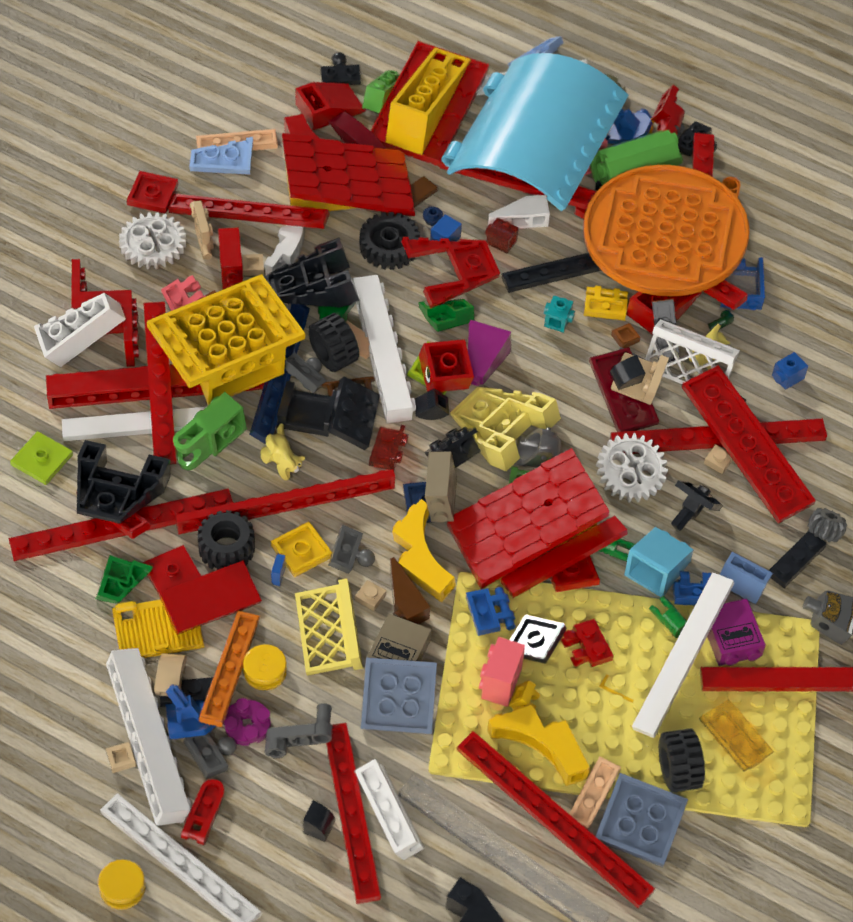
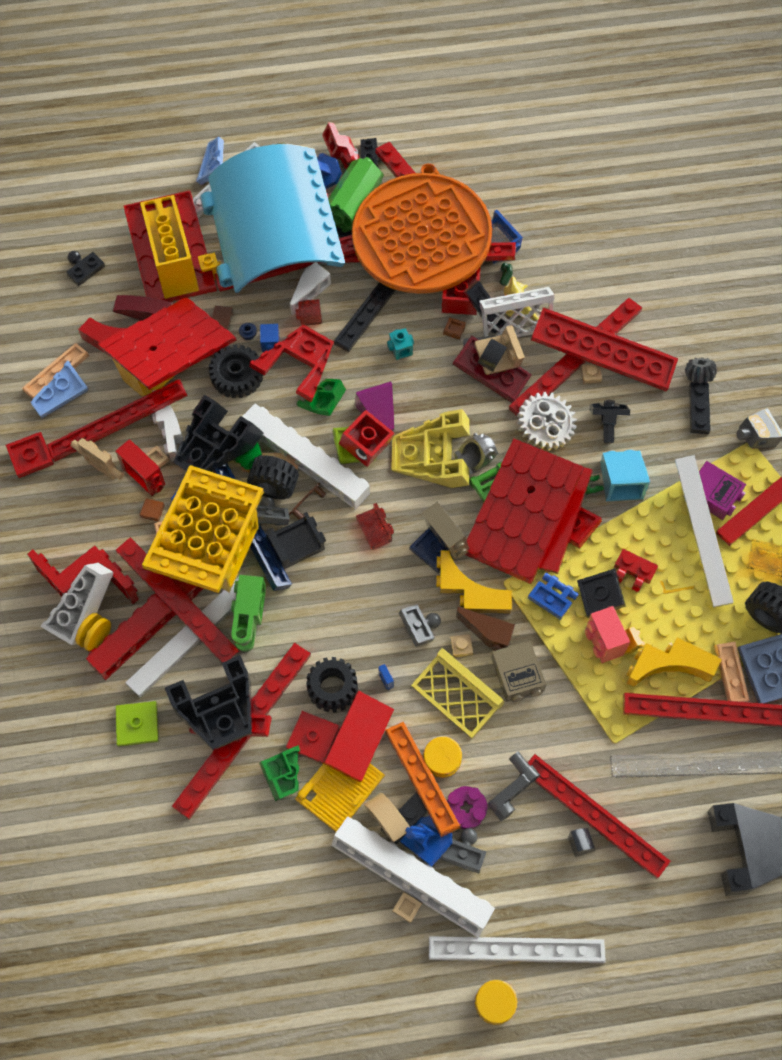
camera: 35 degrees left, 10 degrees up
(71, 358) = (92, 631): none -> yellow head
(164, 233) = (74, 479): white gear -> none
(177, 291) = (128, 525): coral plate -> none
(204, 811) = (500, 898): red plate -> none
(279, 451) = (305, 587): light yellow animal -> none
(293, 499) = (339, 627): red plate -> none
(302, 549) = (384, 647): yellow tile -> none
(325, 101) = (96, 297): red slope -> none
(354, 413) = (331, 519): black plate -> none
(379, 90) = (127, 260): bright green slope -> none
(389, 809) = (622, 794): white brick -> none
(398, 695) = (553, 706): sand blue plate -> none
(432, 405) = (376, 473): black brick -> none
(448, 134) = (209, 262): none -> yellow bracket
(457, 442) = (419, 493): black bracket -> none
(606, 303) = (423, 317): yellow plate -> none
(671, 618) = (671, 510): green hinge -> none
(686, 592) = (666, 481): blue plate -> none
(748, 577) = (686, 444): medium blue brick -> none
(789, 370) = (580, 278): blue brick -> none

